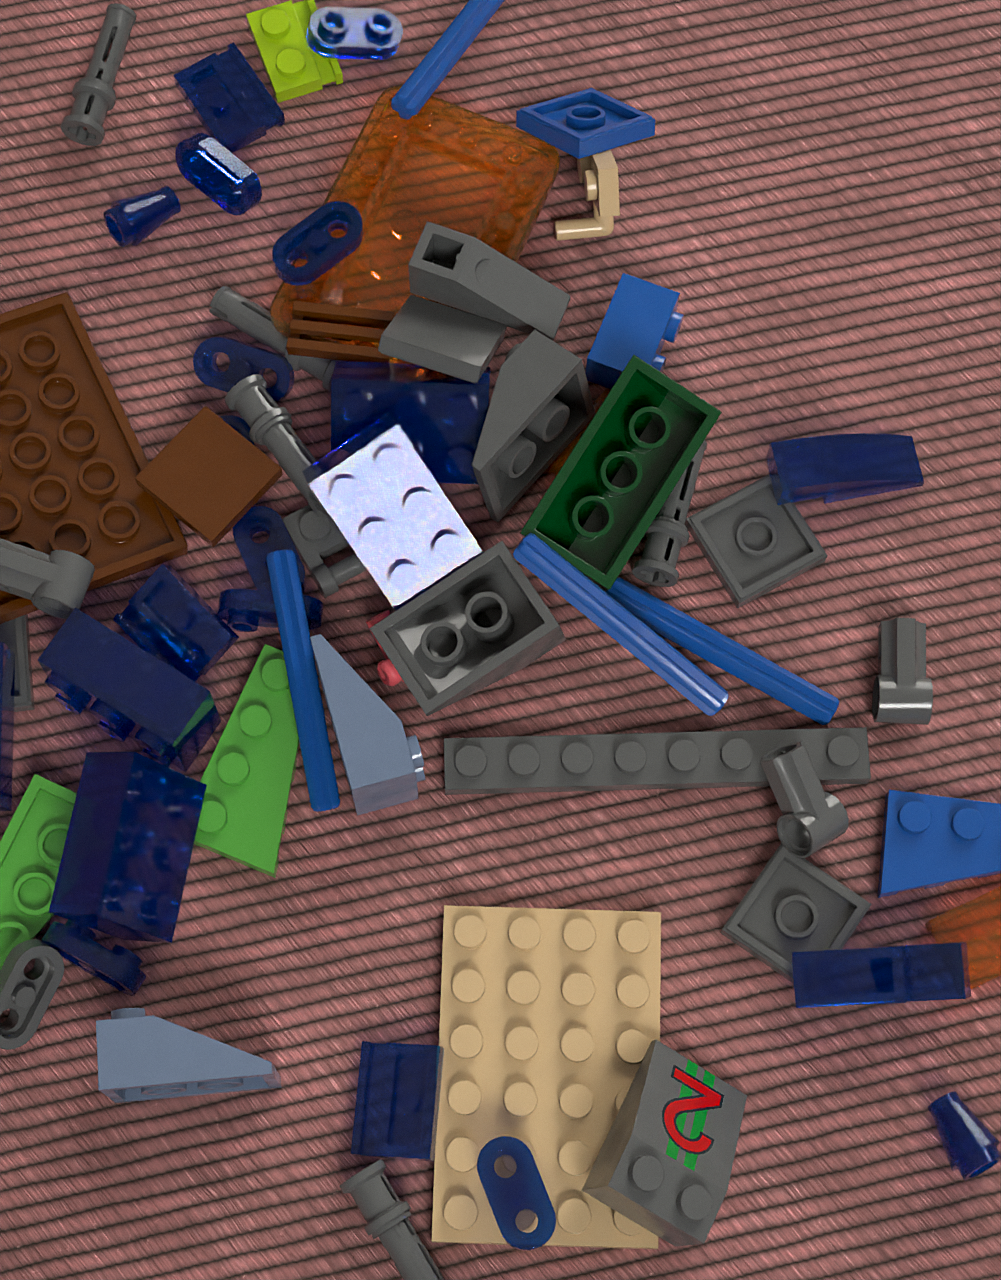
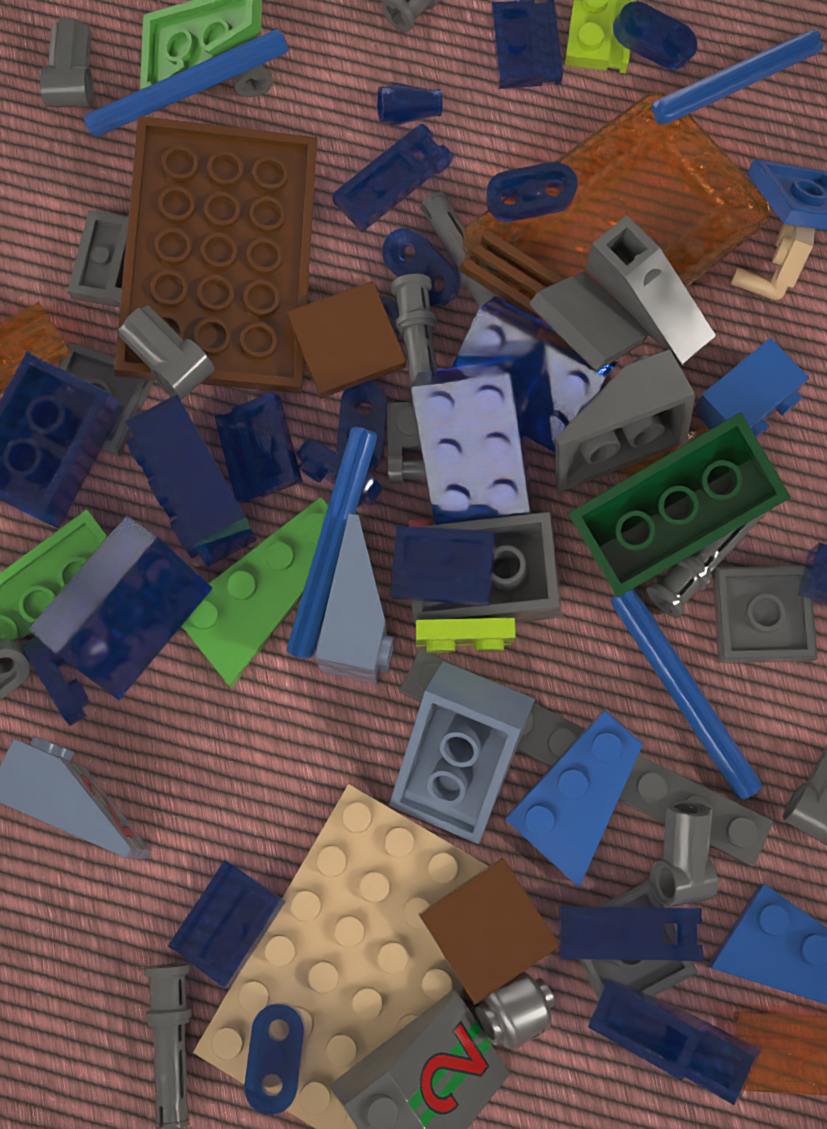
camera: 30 degrees right, 5 degrees up
(164, 296) = (391, 177): none -> clear blue plate
(218, 174) = (485, 99): clear blue plate -> none
(426, 642) = (443, 565): none -> clear blue plate
(472, 704) = (484, 634): none -> lime plate
(537, 815) = (460, 751): none -> sand blue slope
(620, 624) = (612, 630): blue axle -> none
(654, 966) = (488, 930): none -> reddish brown tile
(671, 798) = (577, 796): none -> blue wing
(719, 1029) = (516, 1011): none -> flat silver head
(786, 900) = (628, 933): none -> clear blue plate

